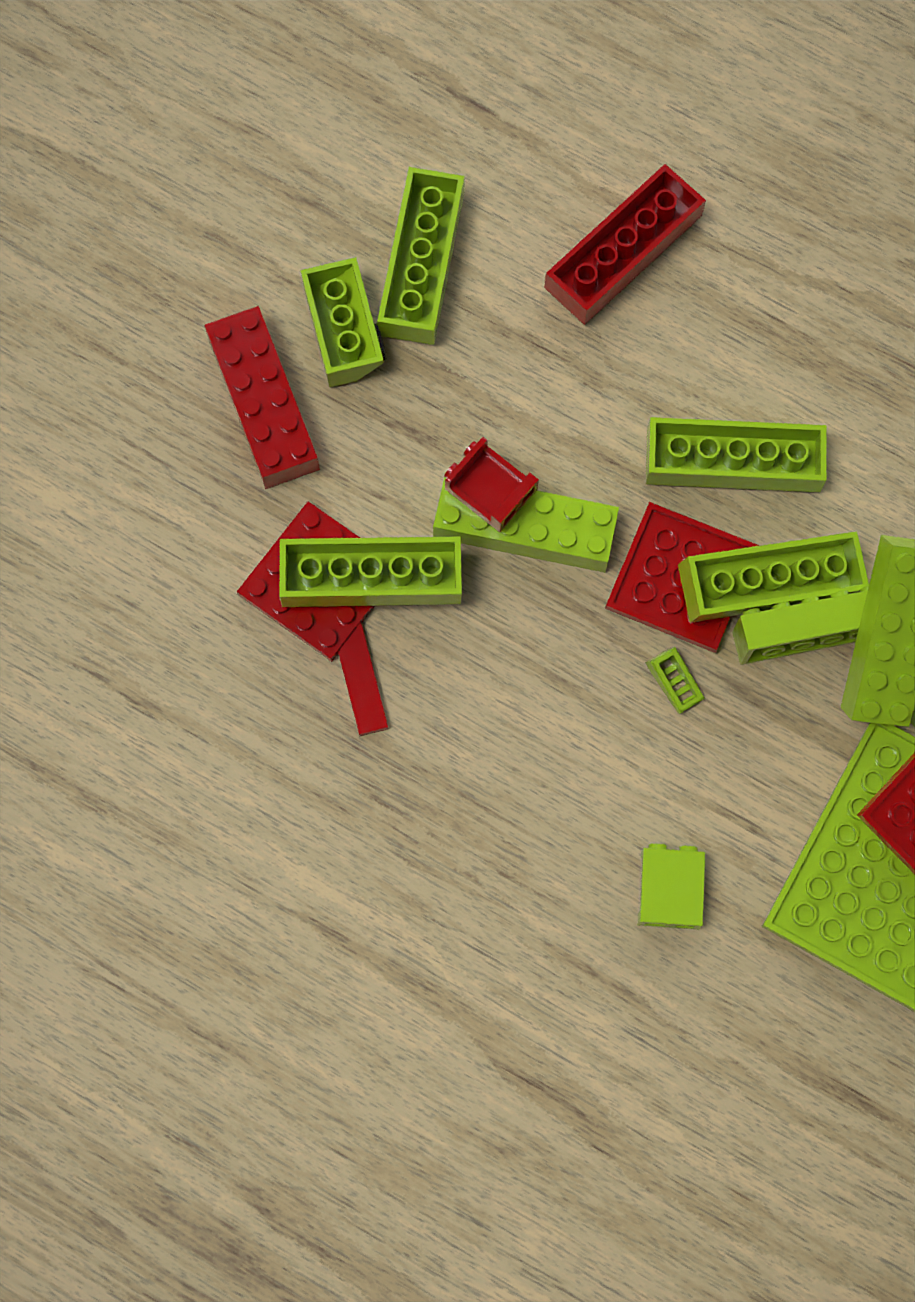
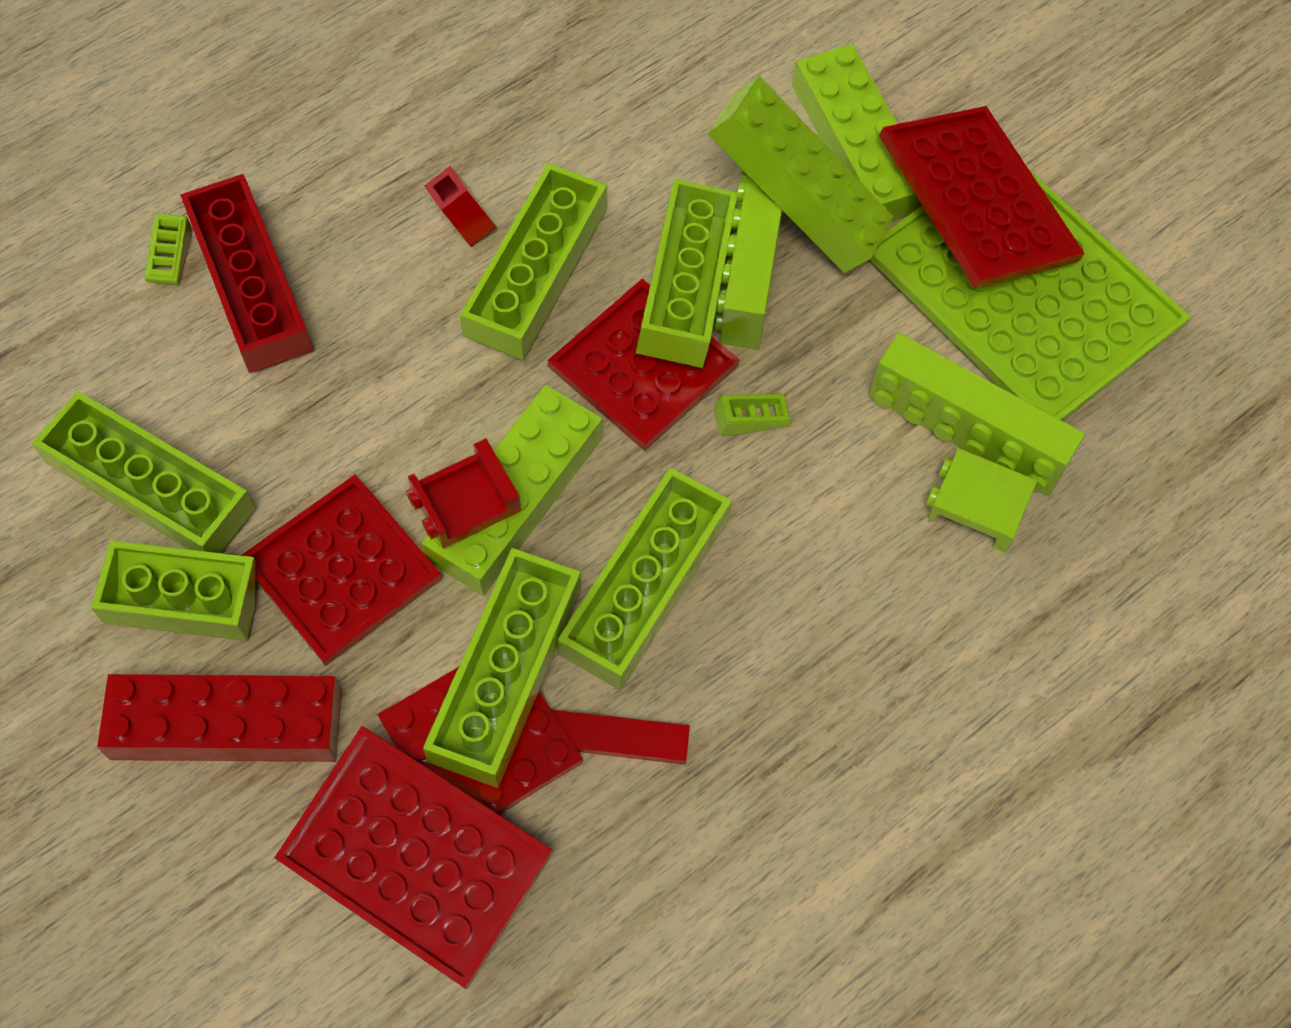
camera: 70 degrees left, 10 degrees down
(213, 570) = (414, 856): none -> red plate
(409, 425) = (341, 569): none -> red plate
(490, 647) = (644, 578): none -> lime brick
(629, 167) = (173, 229): none -> lime slope
(742, 855) = (973, 413): none -> lime brick
(760, 375) = (460, 206): none -> red slope

